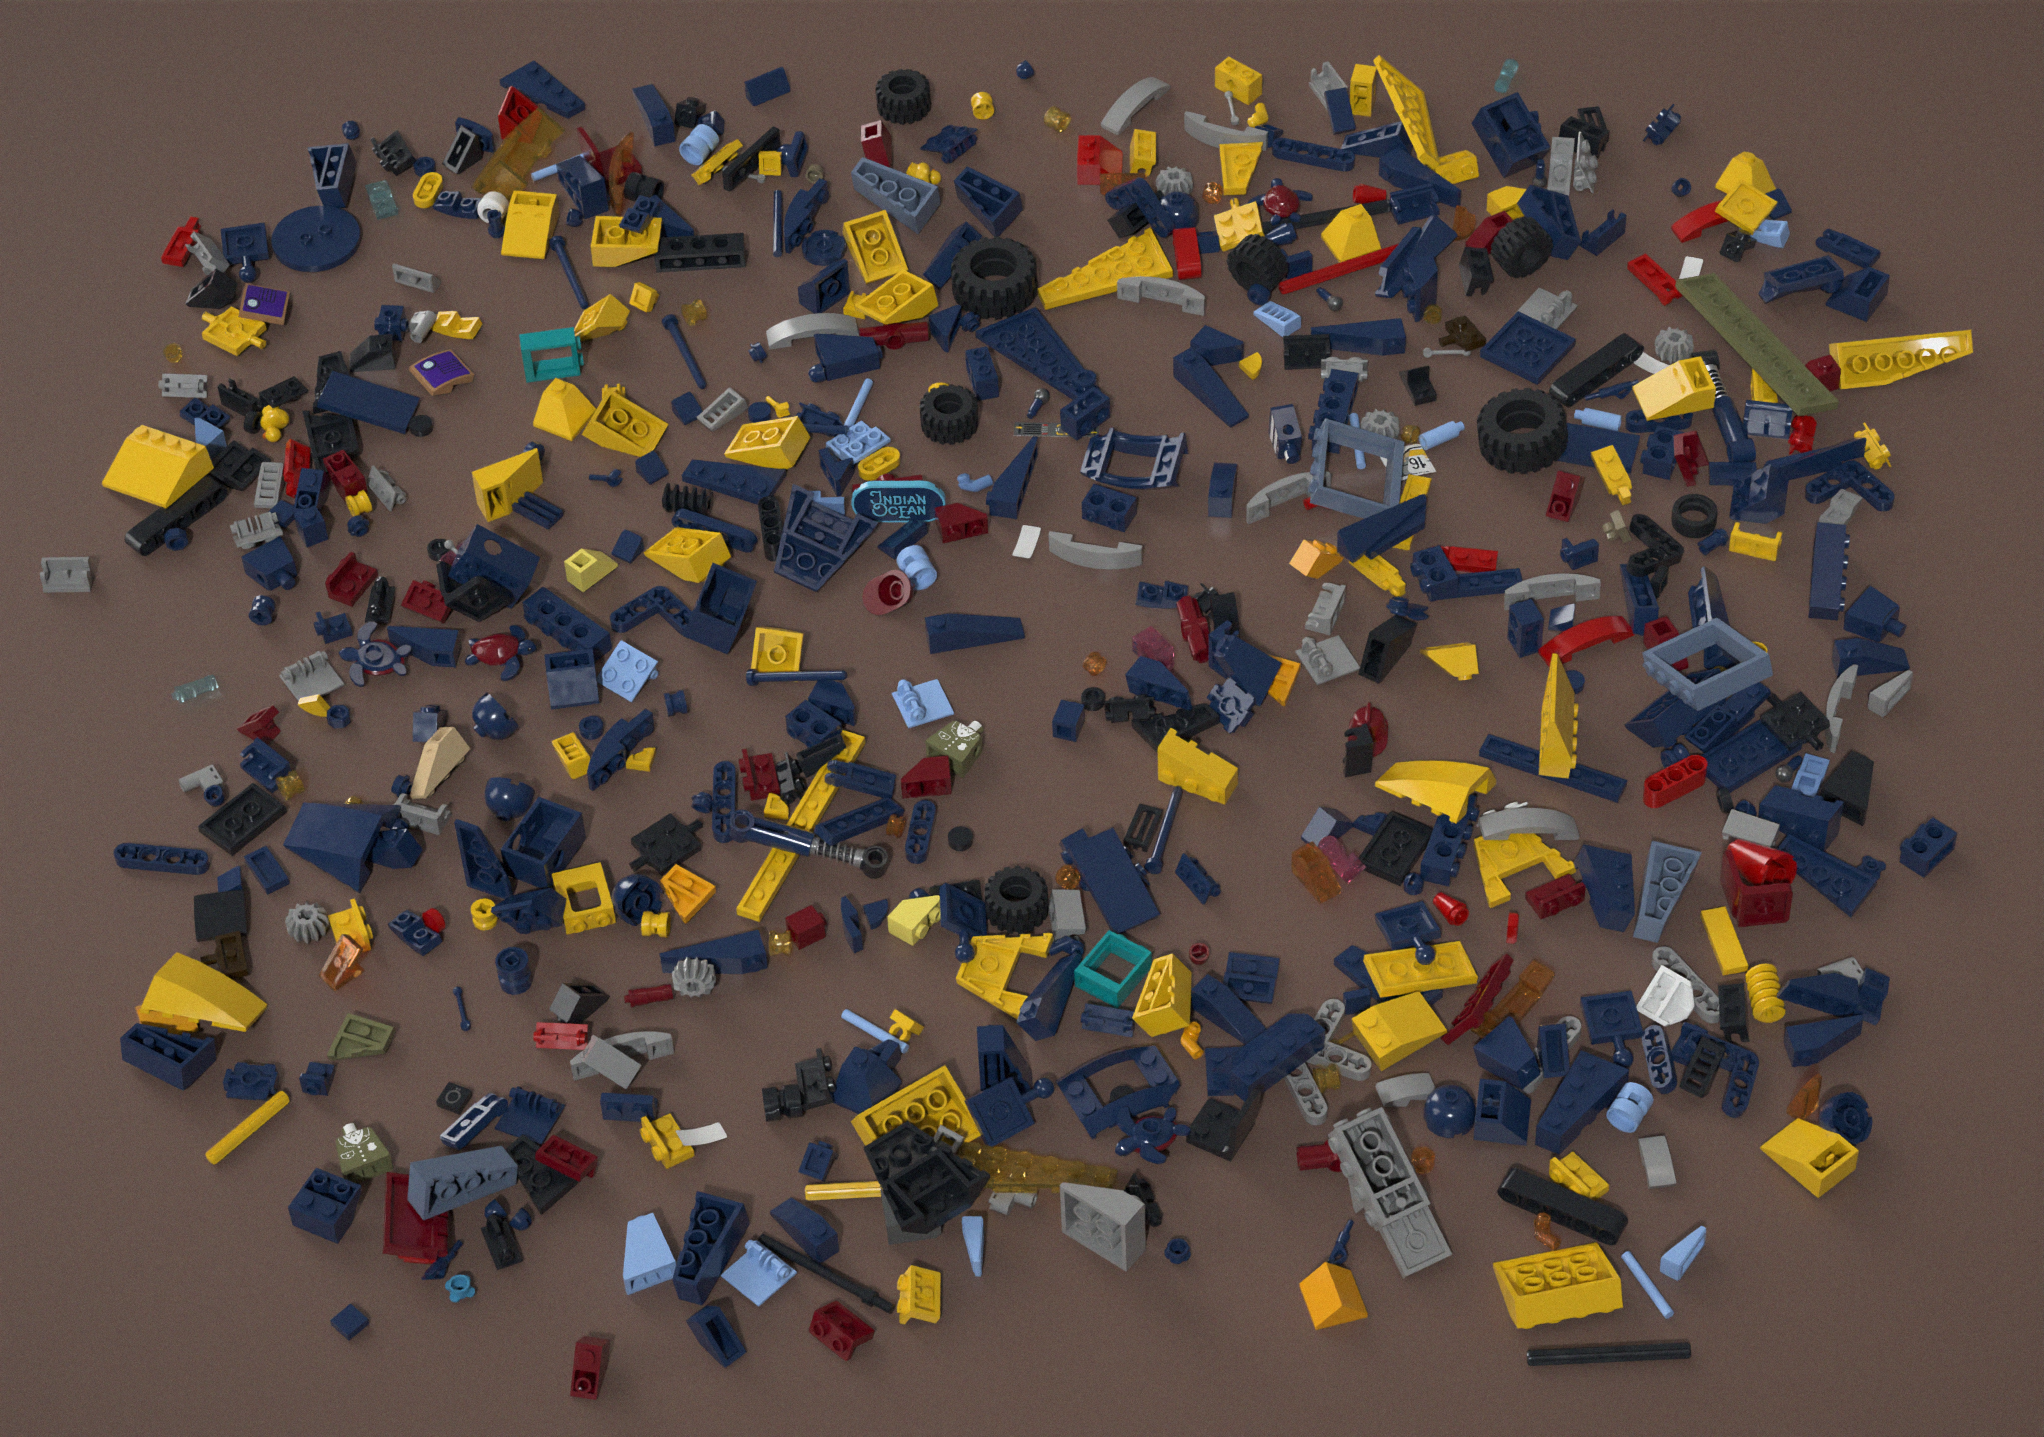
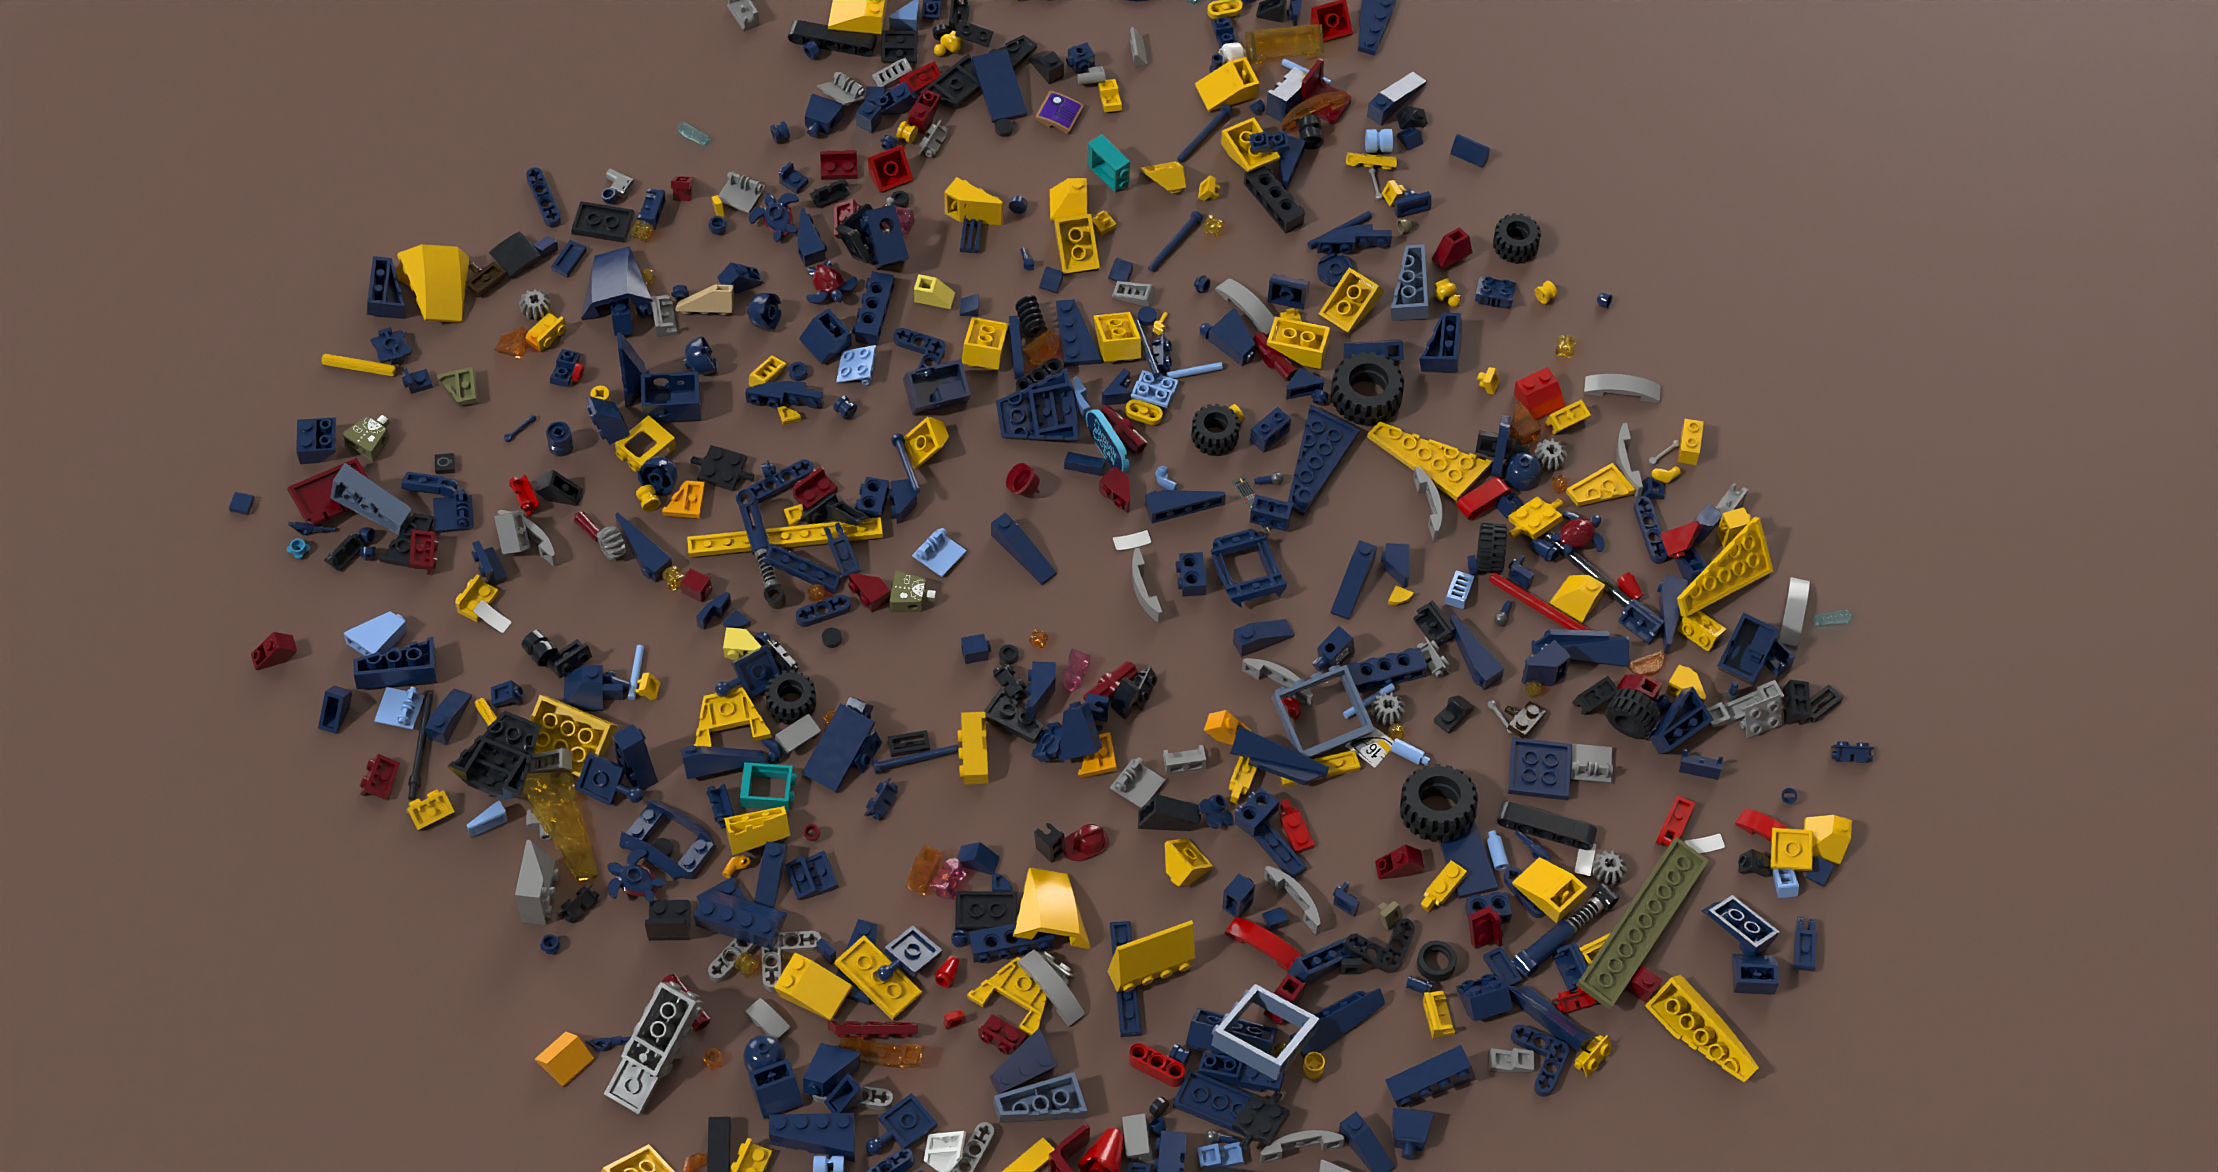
camera: 55 degrees right, 10 degrees up
(396, 538) = (889, 168): none -> red slope
(736, 507) = (1042, 347): none -> clear orange slope
(749, 160) = (1379, 178): black tile -> none
(917, 566) = (1056, 485): light blue wheel -> none
(1052, 190) = (1489, 380): none -> yellow tile
(1158, 596) = (1132, 648): dark blue slope -> none
(1350, 128) = (1681, 539): none -> red slope
(1471, 88) = (1794, 612): none -> light grey slope
(1576, 680) = (1216, 953): dark blue tile -> none

